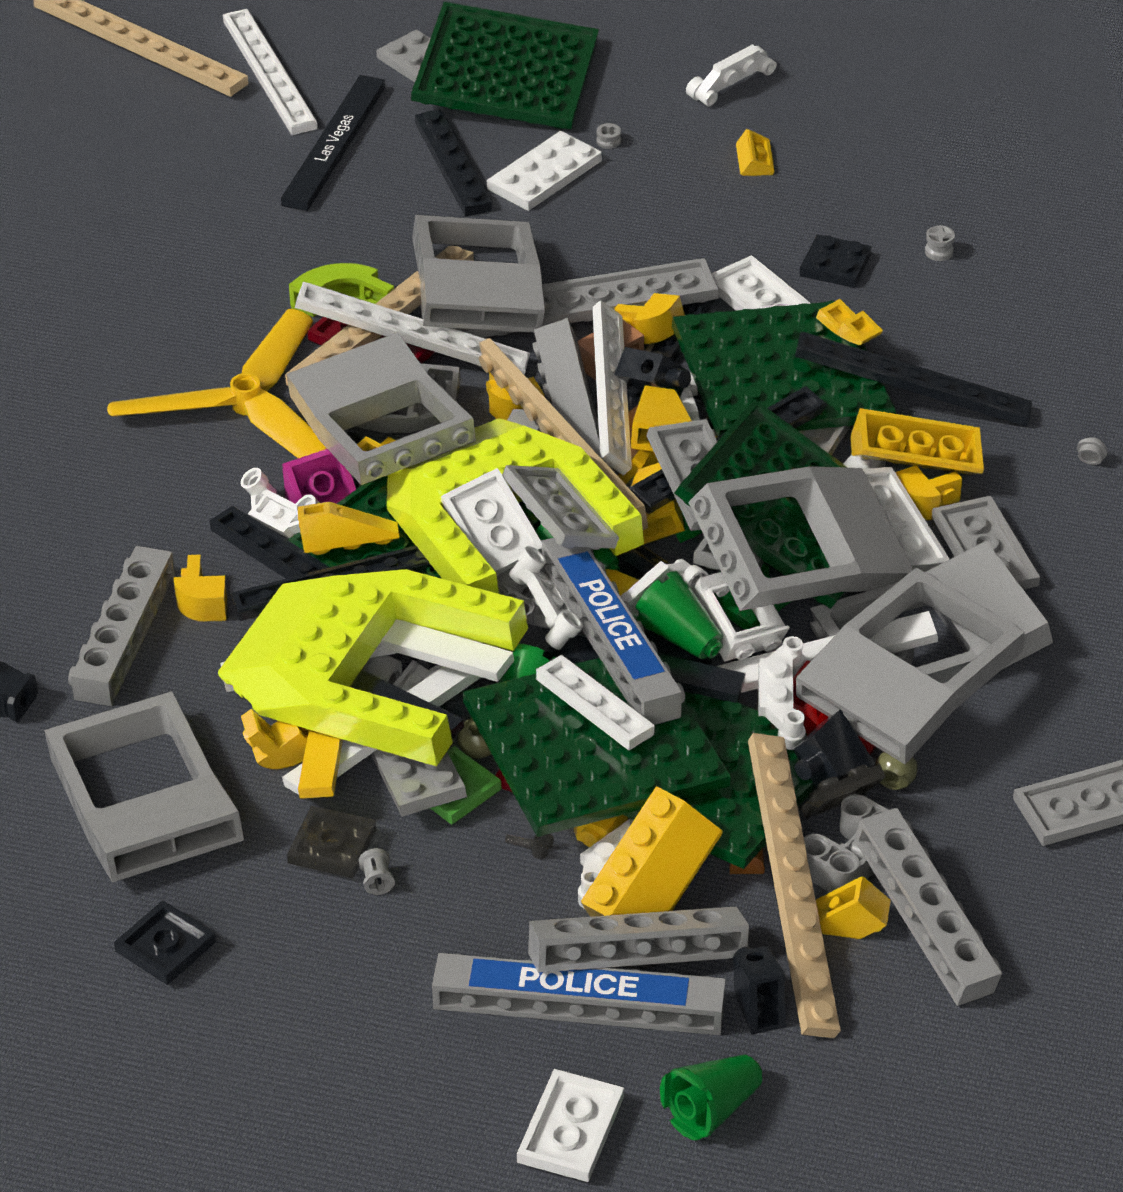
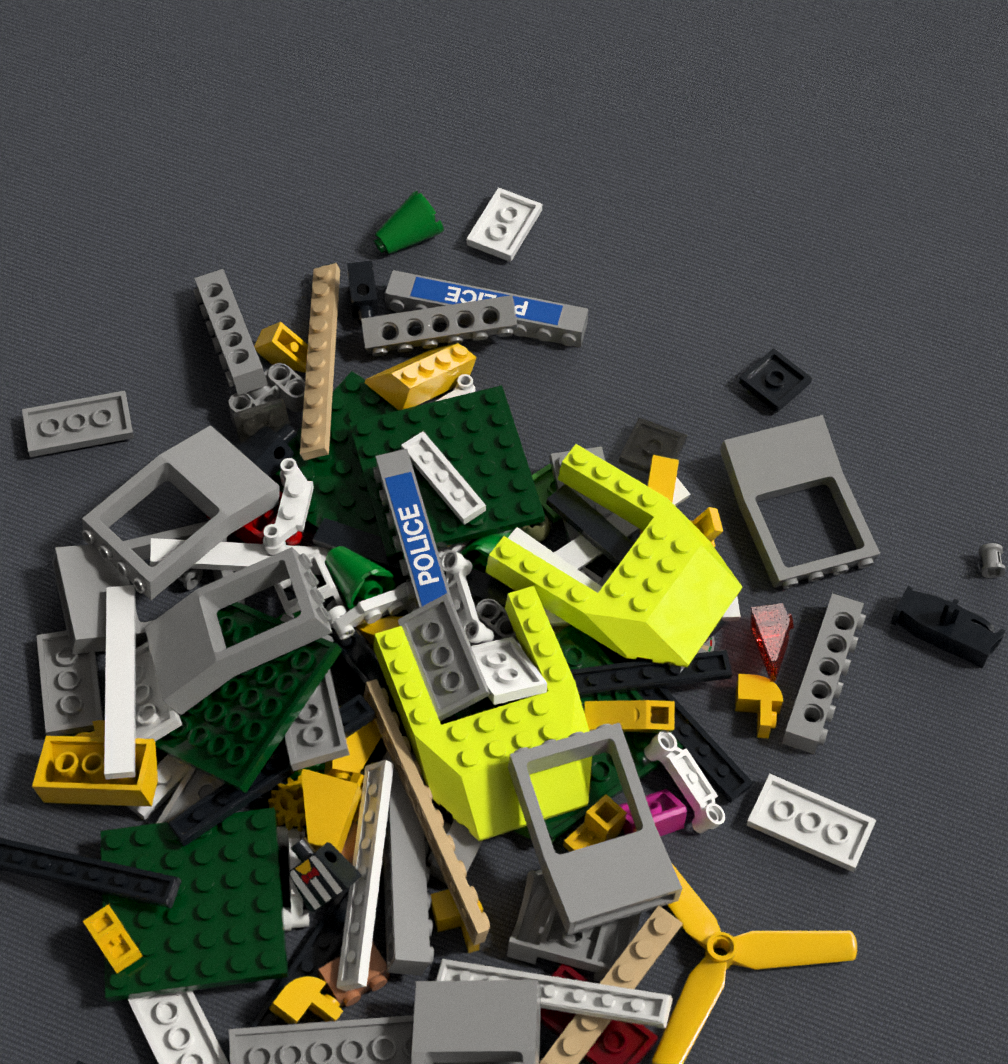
camera: 175 degrees left, 15 degrees up
(147, 499) = (811, 822): none -> white plate
(182, 644) = (771, 633): none -> clear red slope
(373, 872) = (620, 418): light grey bush -> none
(918, 497) = (120, 682): none -> white tile

